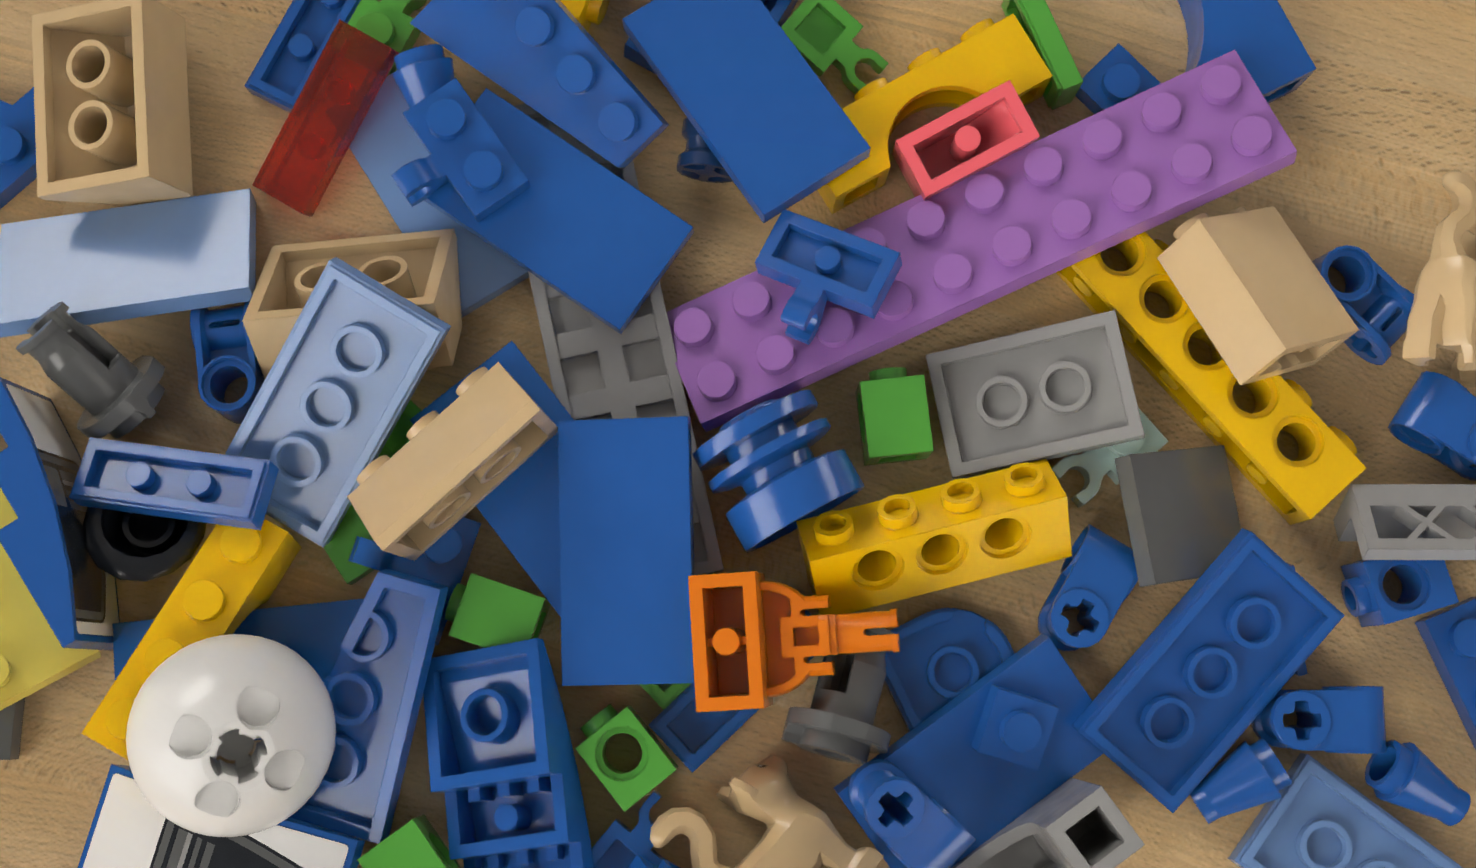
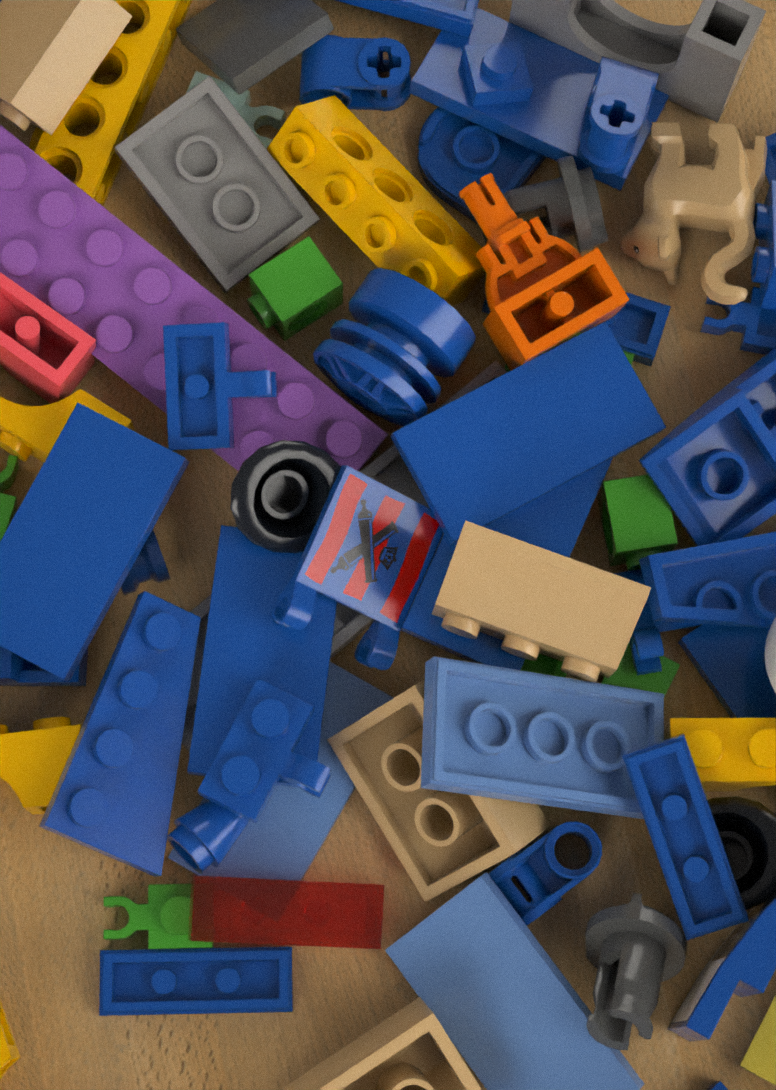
camera: 120 degrees left, 5 degrees down
(592, 337) = (367, 556): none -> flag
(629, 785) = (699, 340): bright green brick -> none
(677, 289) = (282, 494): none -> black hat

